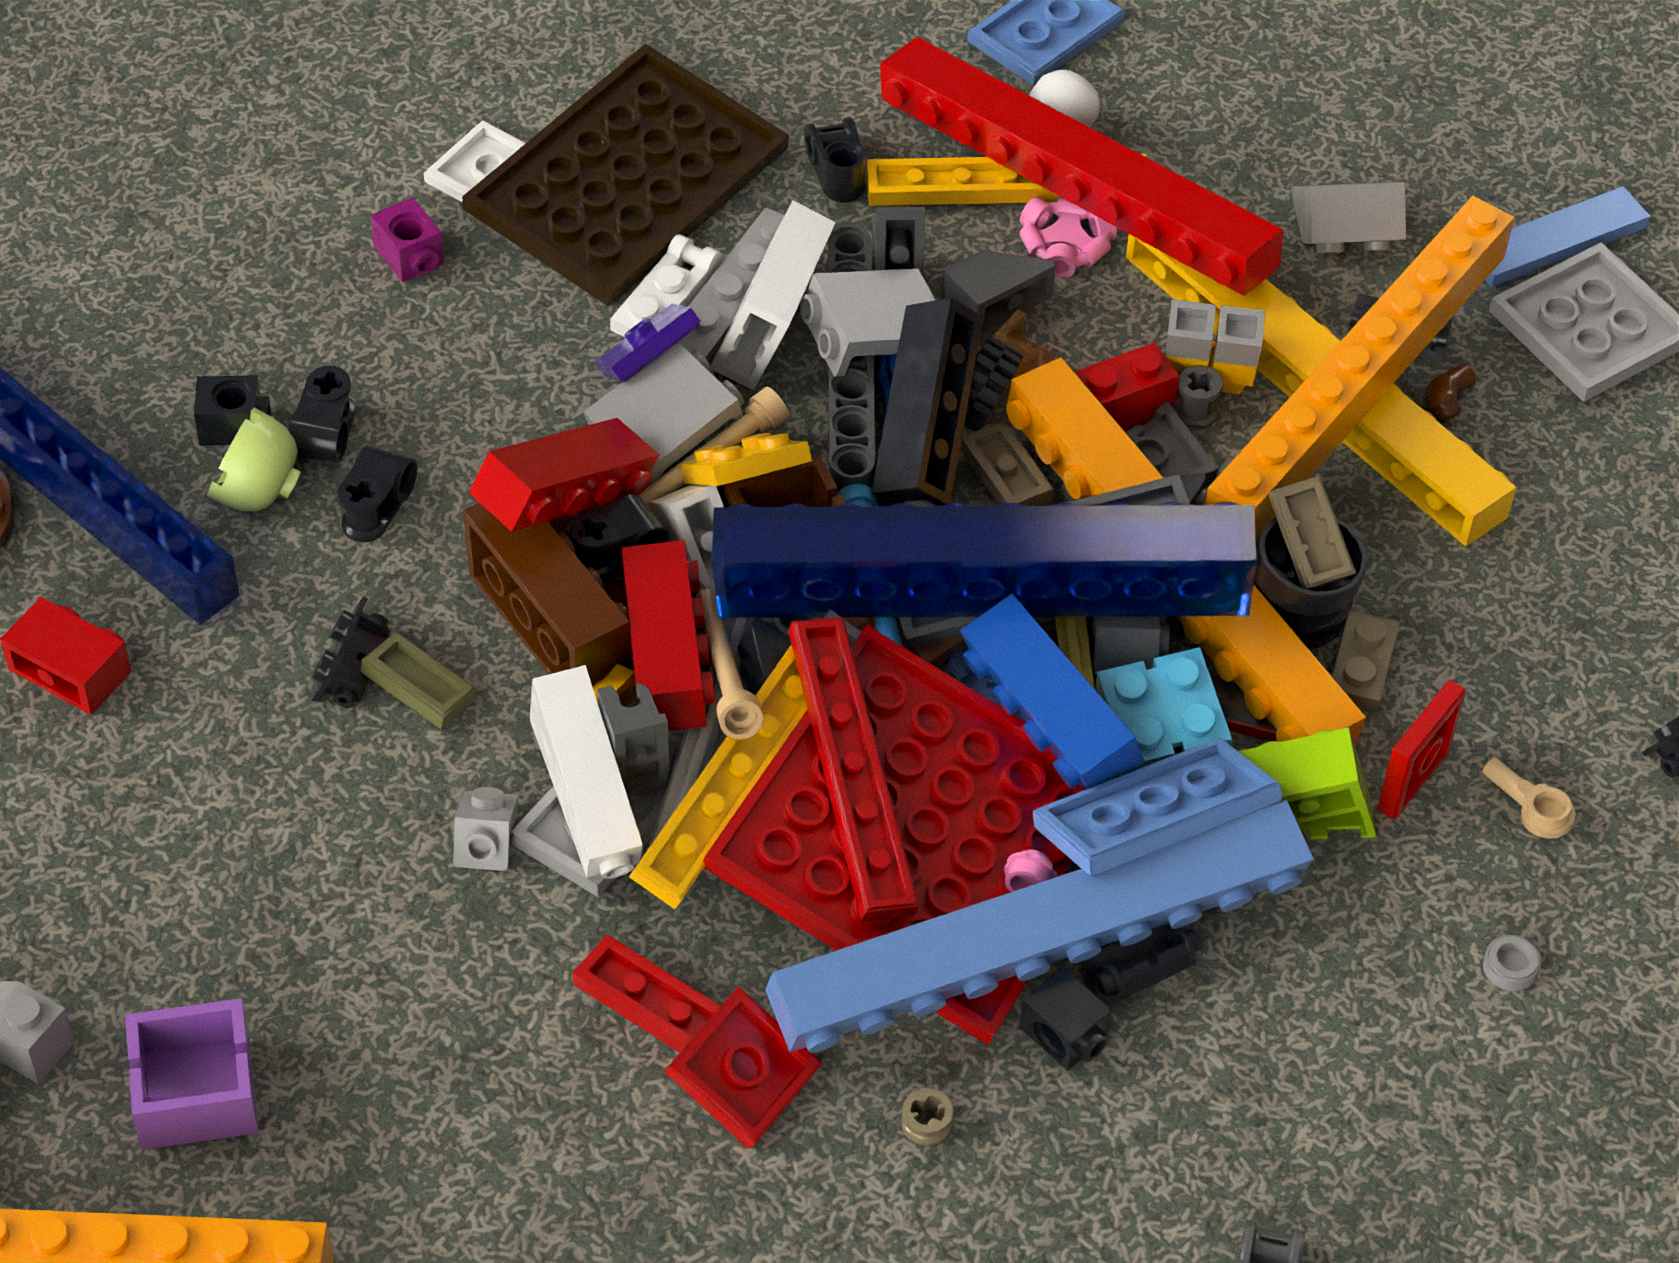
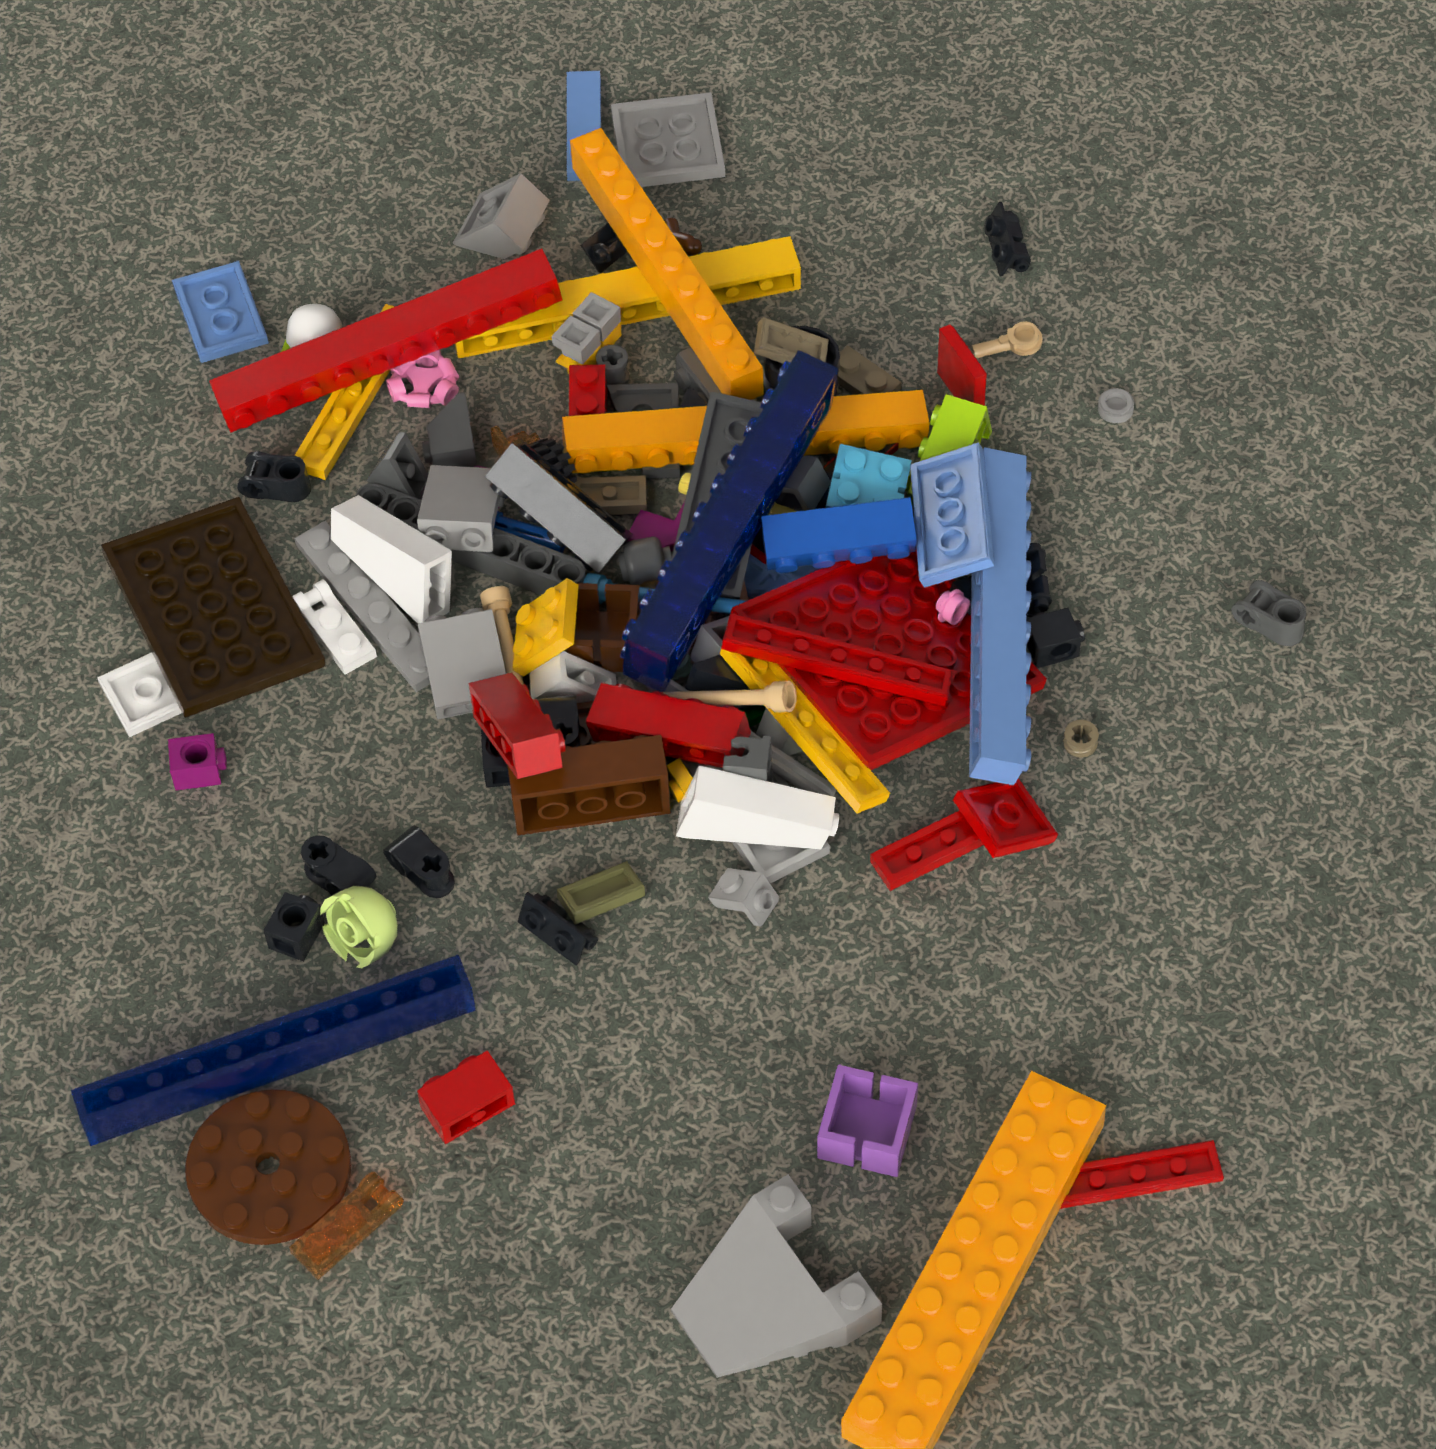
camera: 60 degrees left, 5 degrees up
(647, 341) = (397, 646): dark purple plate -> none

